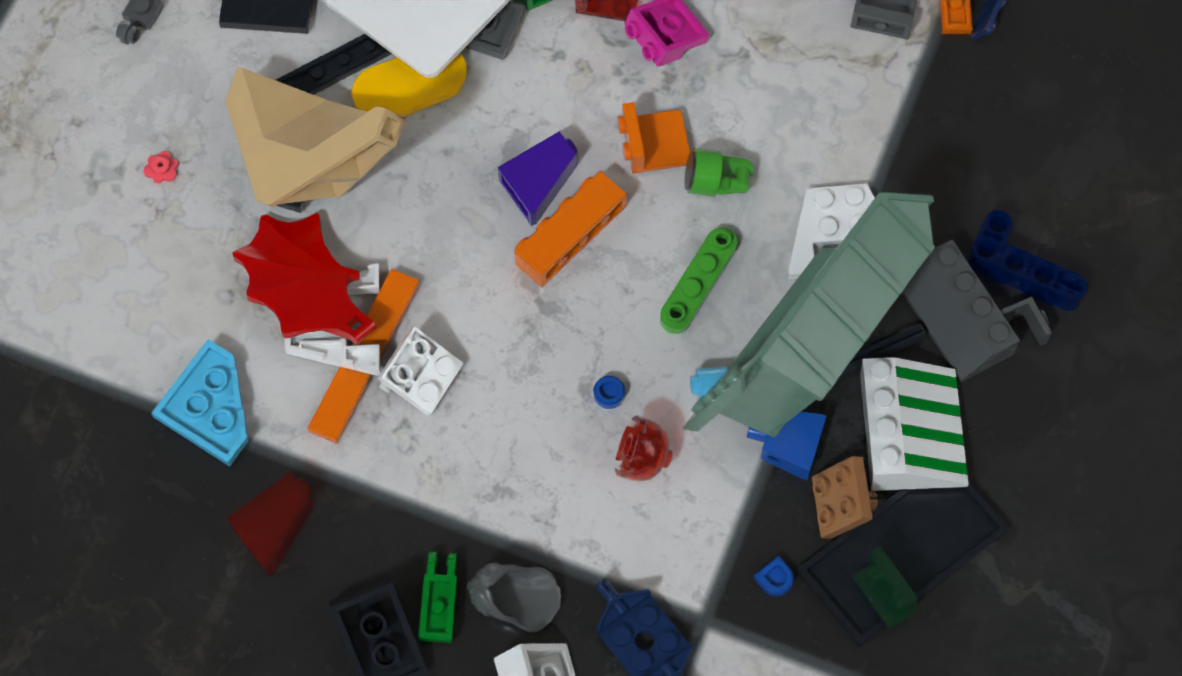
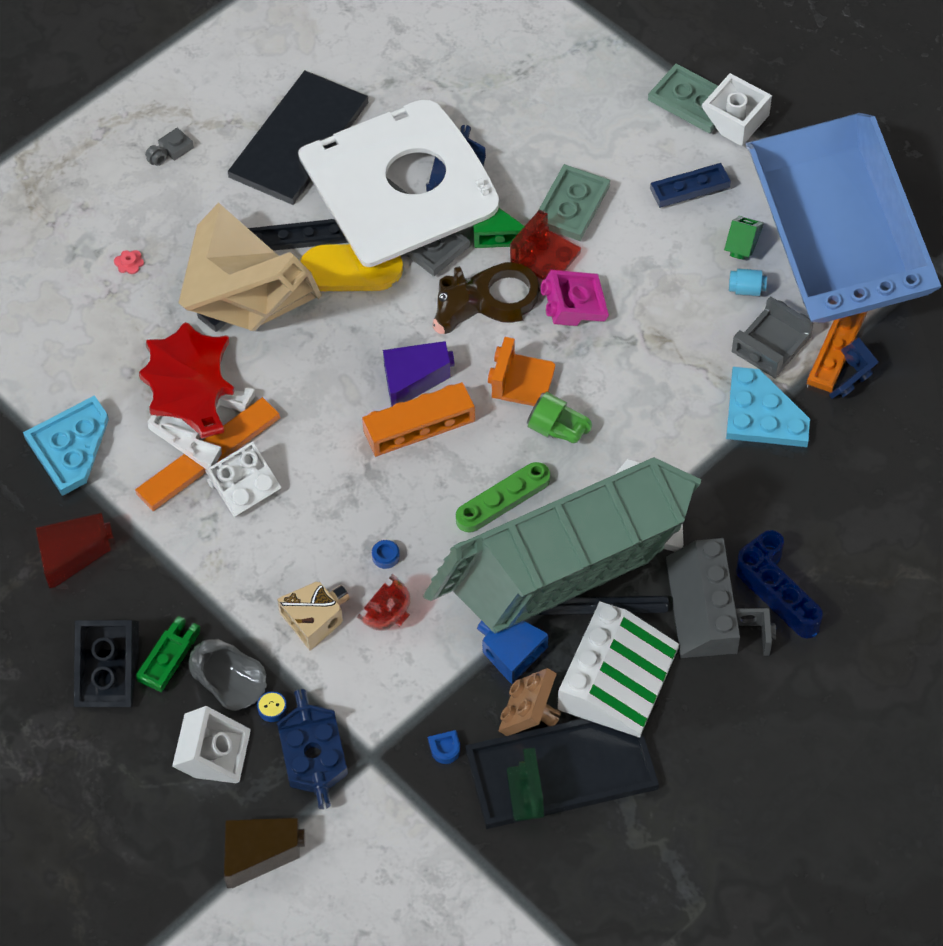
camera: 25 degrees right, 10 degrees down
(549, 69) = (465, 297): none -> dark brown animal
(568, 488) = (313, 611): none -> tan torso
(576, 609) = (272, 706): none -> light yellow tile
(914, 81) = (763, 411): none -> medium azure plate

